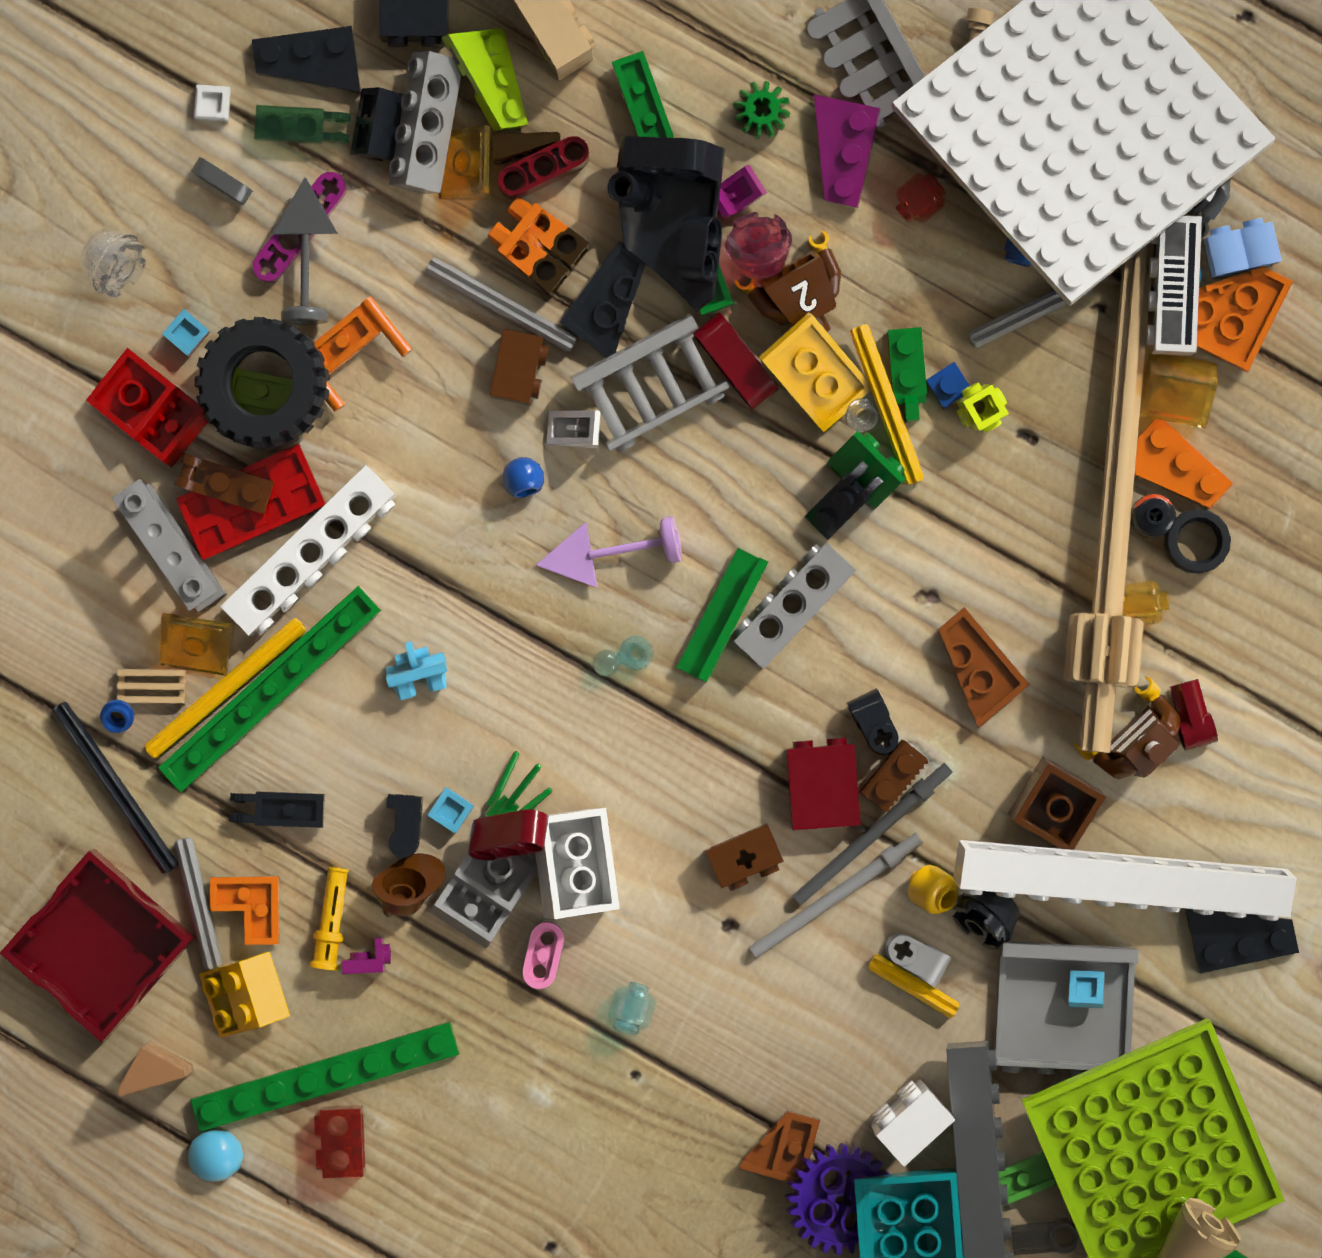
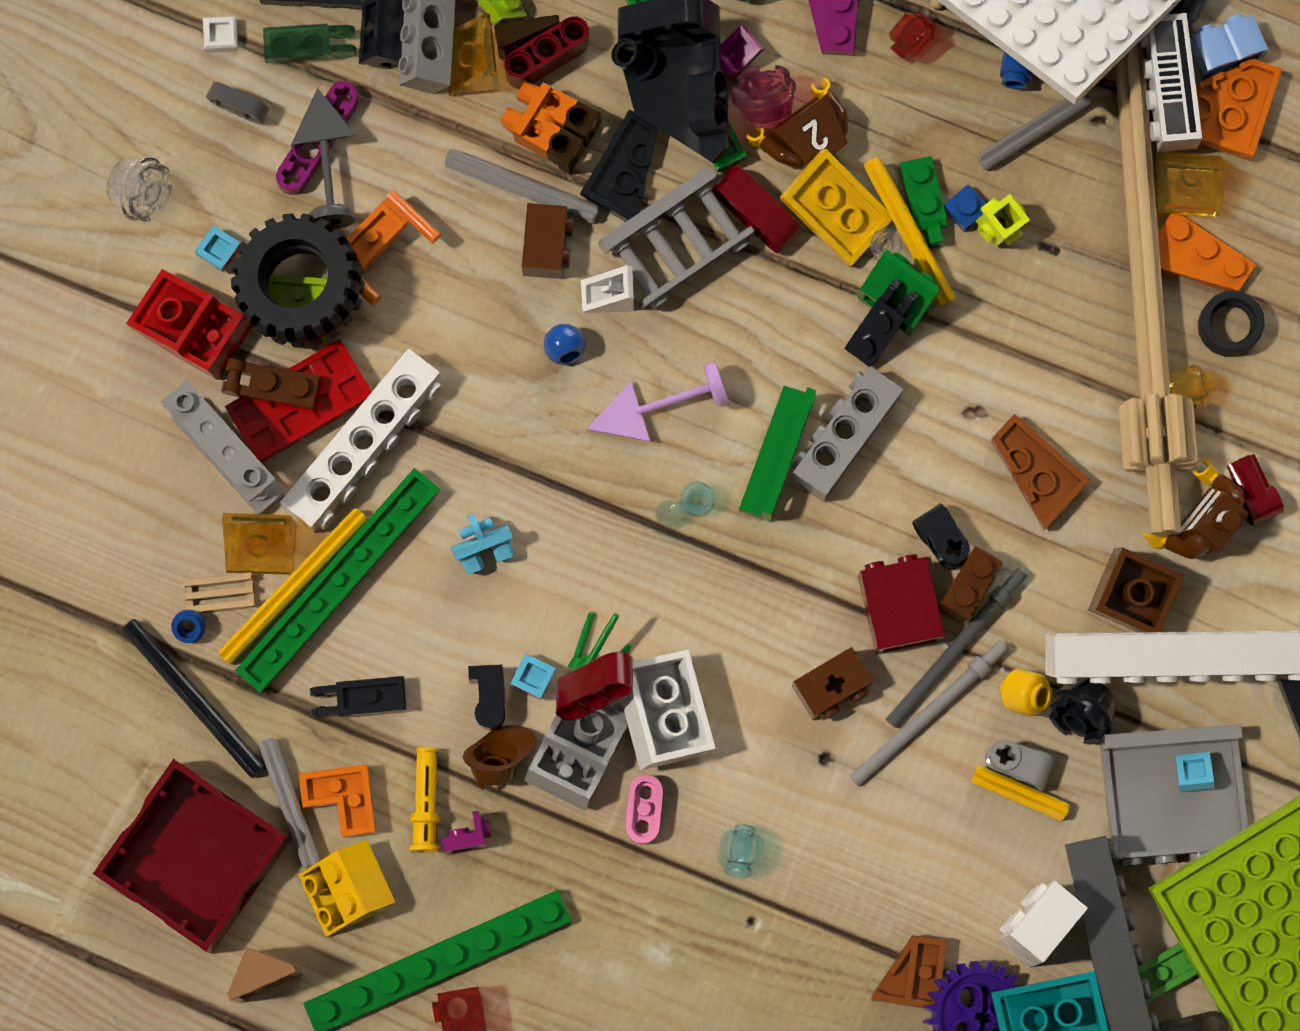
camera: 10 degrees left, 10 degrees down
(1142, 509) = (1184, 303): black head -> none

